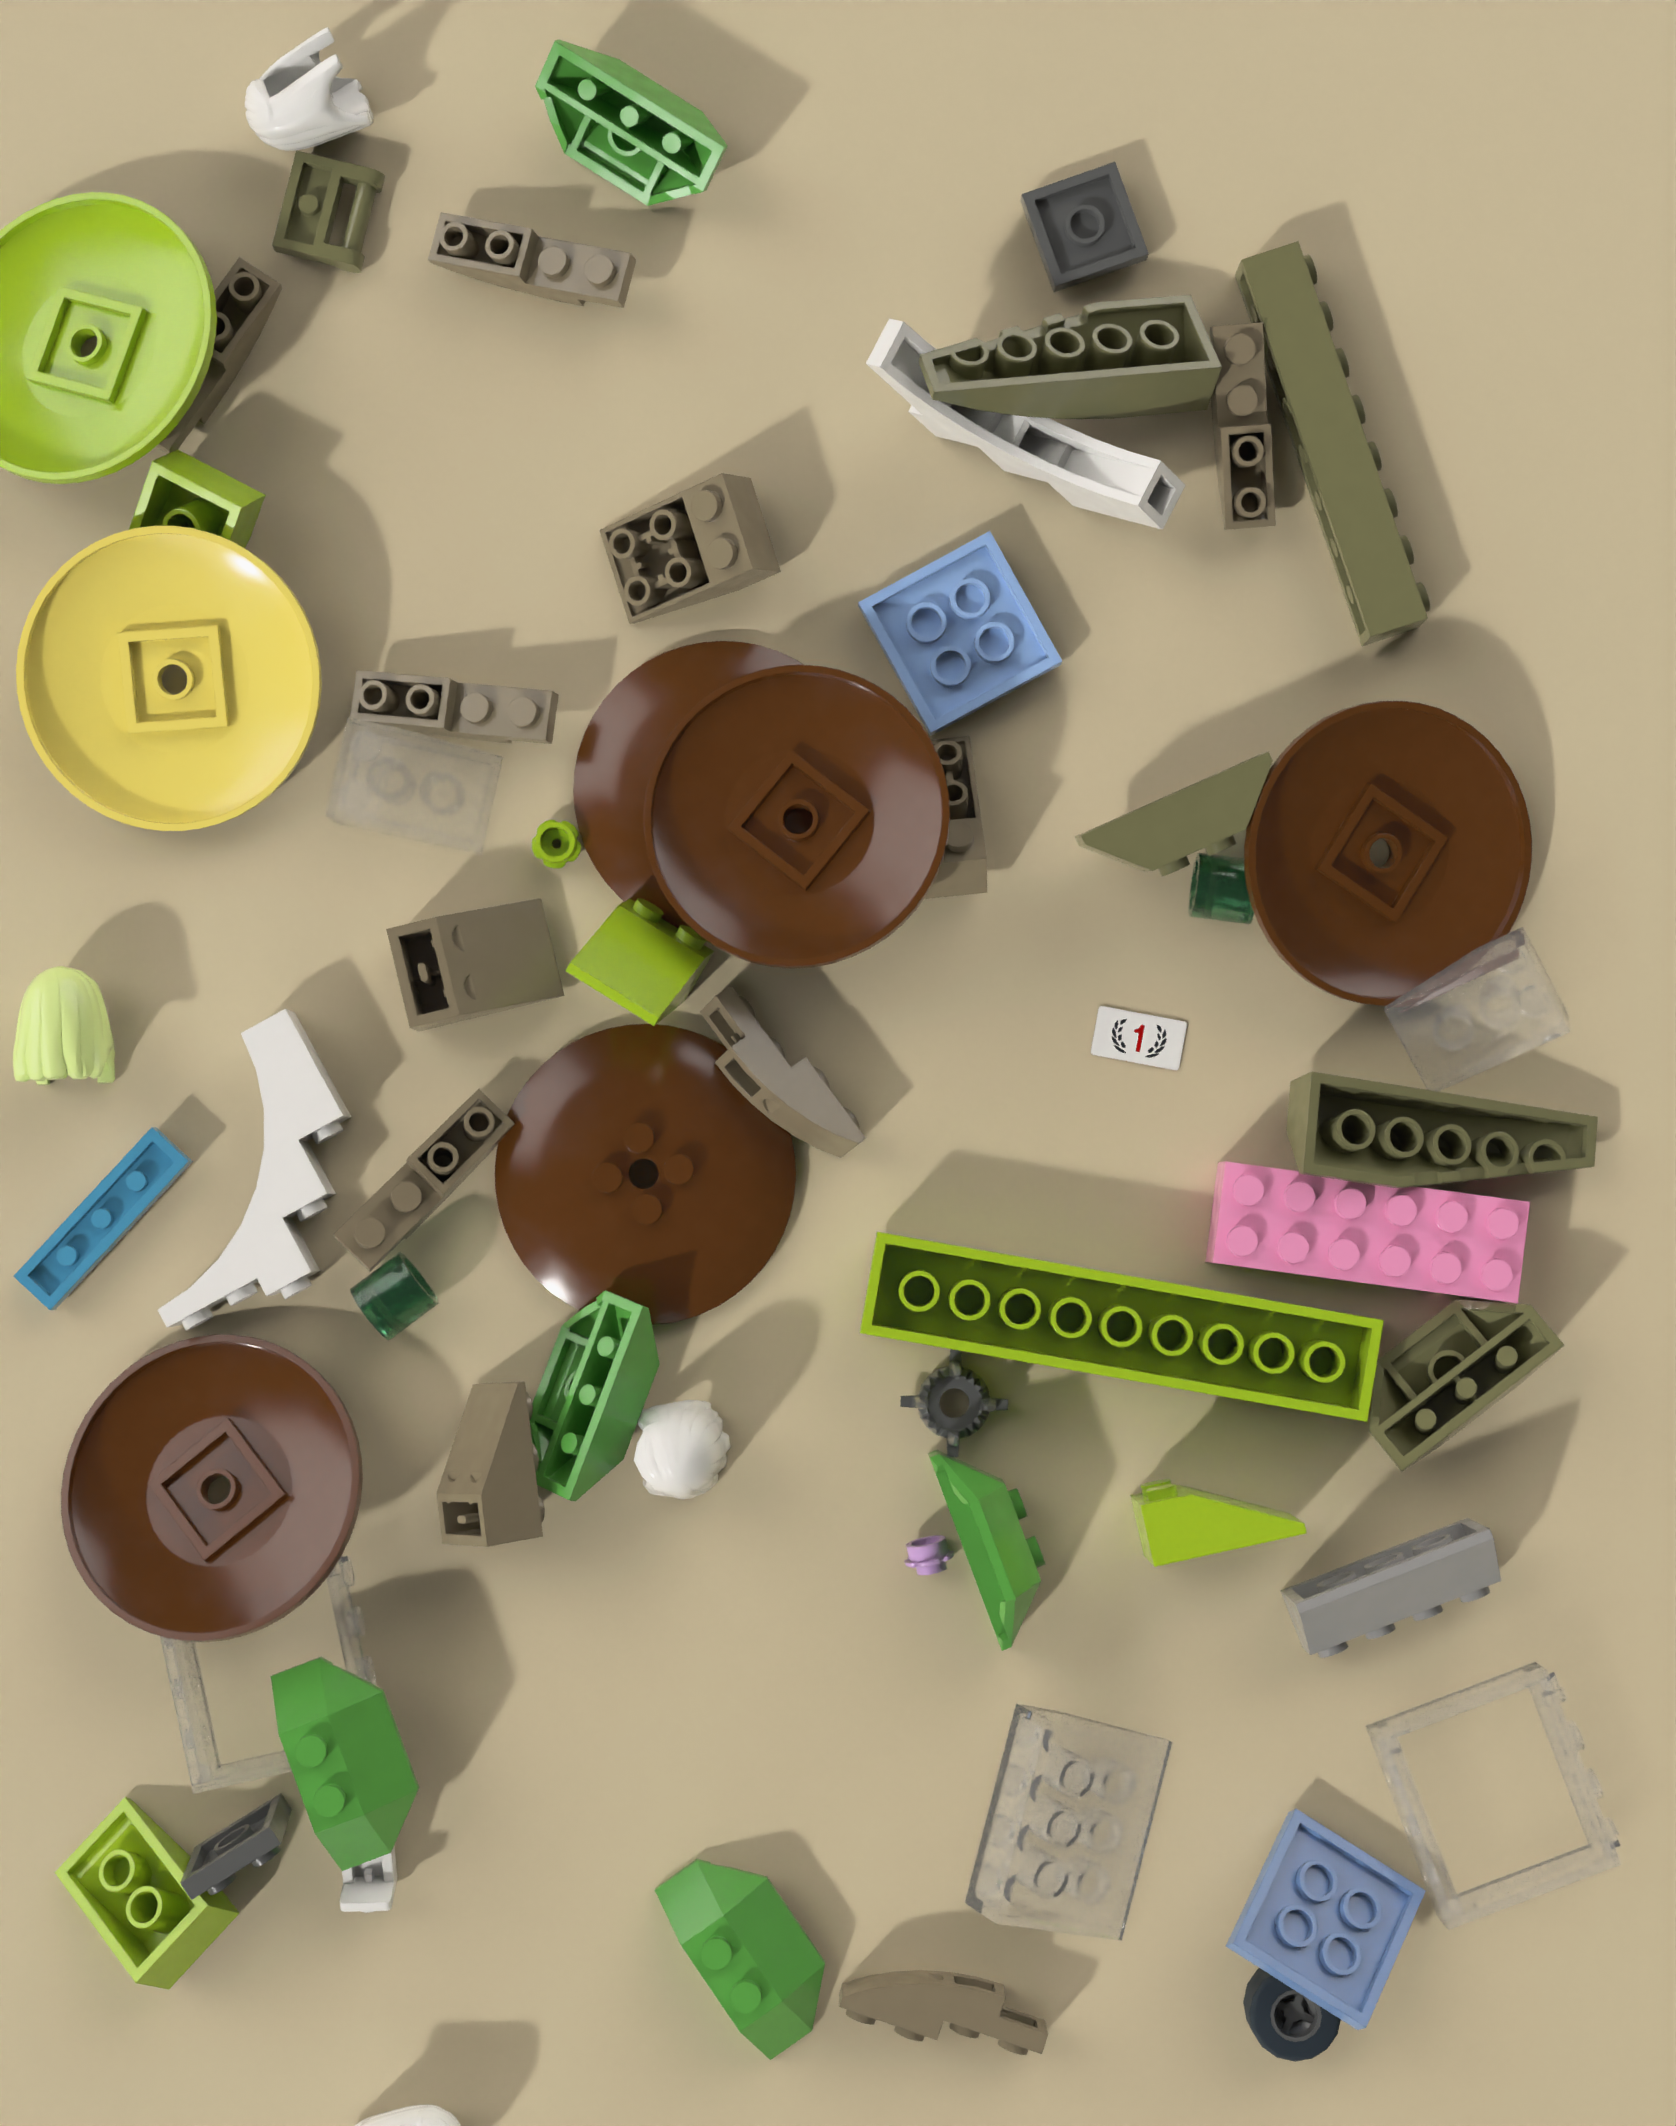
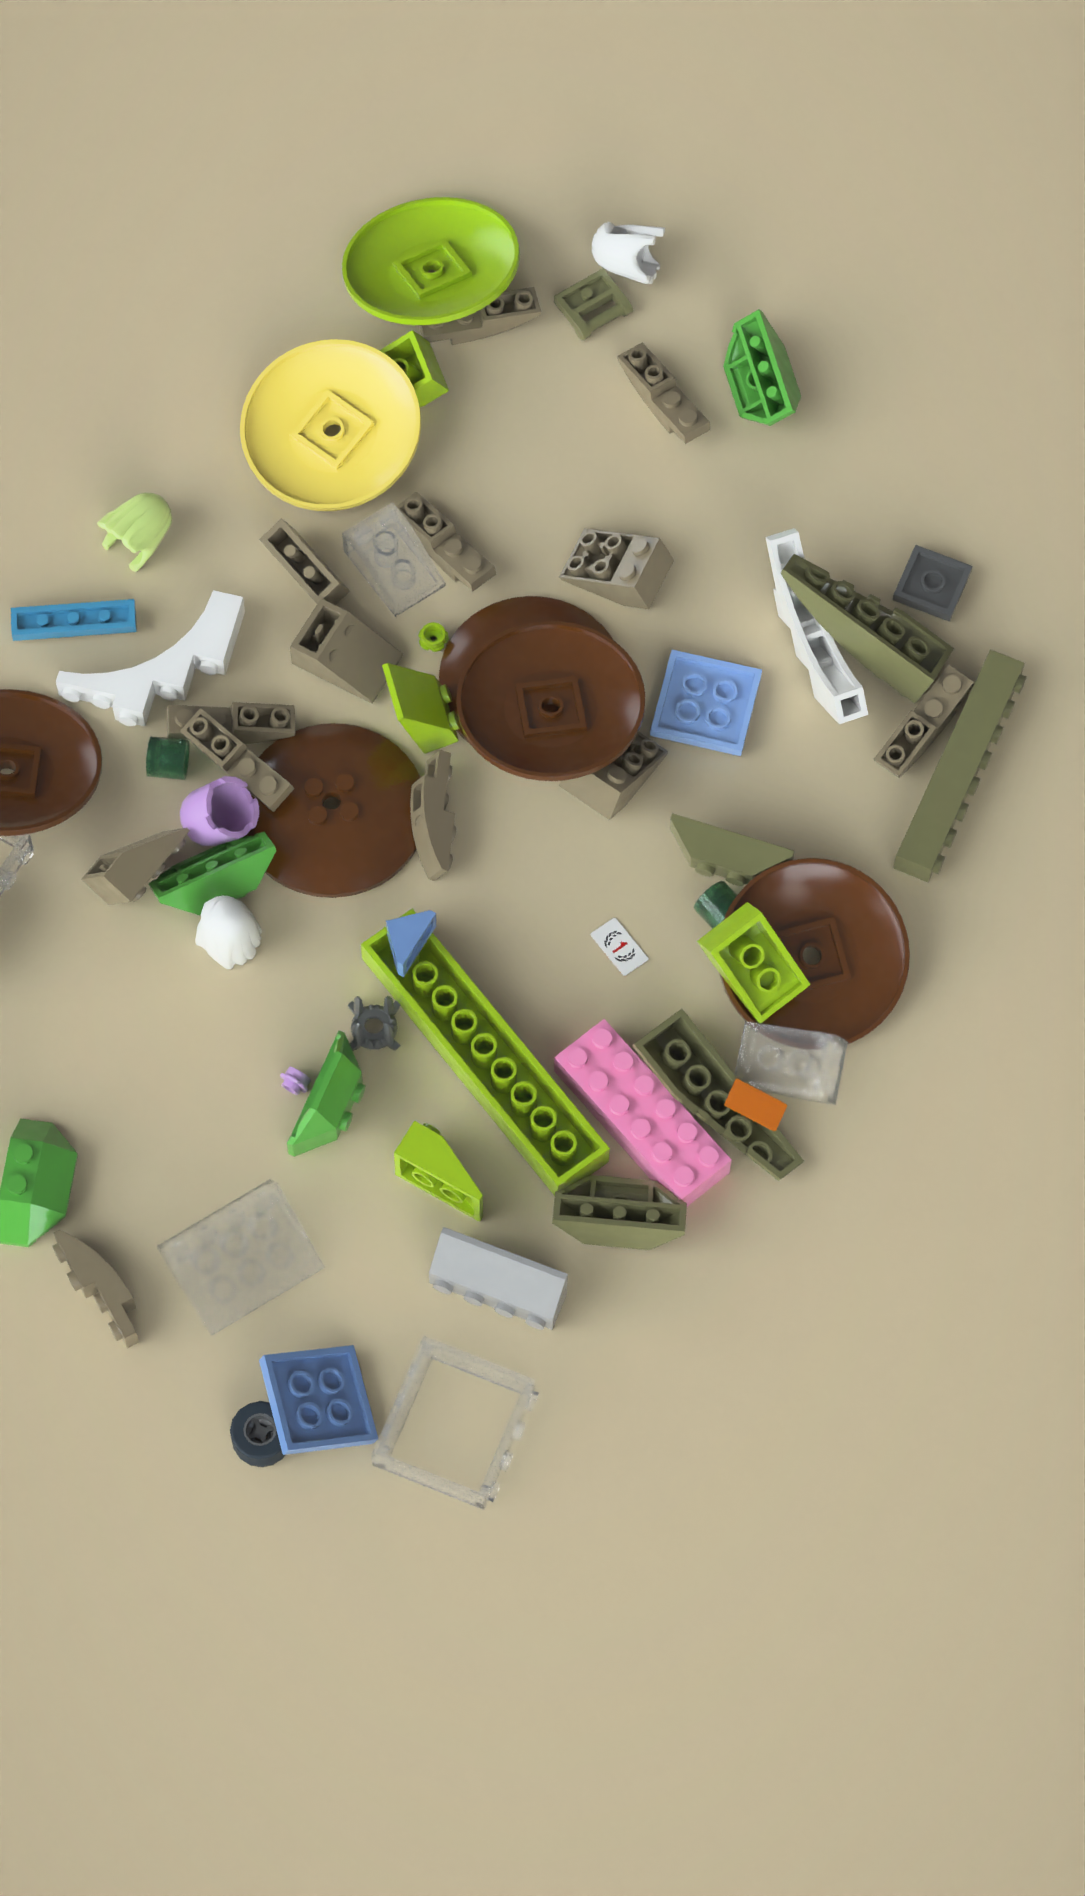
camera: 40 degrees right, 20 degrees down
(316, 895) = (303, 563): none -> dark tan brick
(486, 1229) = (236, 759): none -> dark tan slope
(532, 1319) = (219, 812): none -> lavender cylinder
(916, 1283) = (408, 936): none -> medium blue slope
(1340, 936) = (754, 962): none -> lime slope
(1491, 1105) = (755, 1105): none -> orange sticker

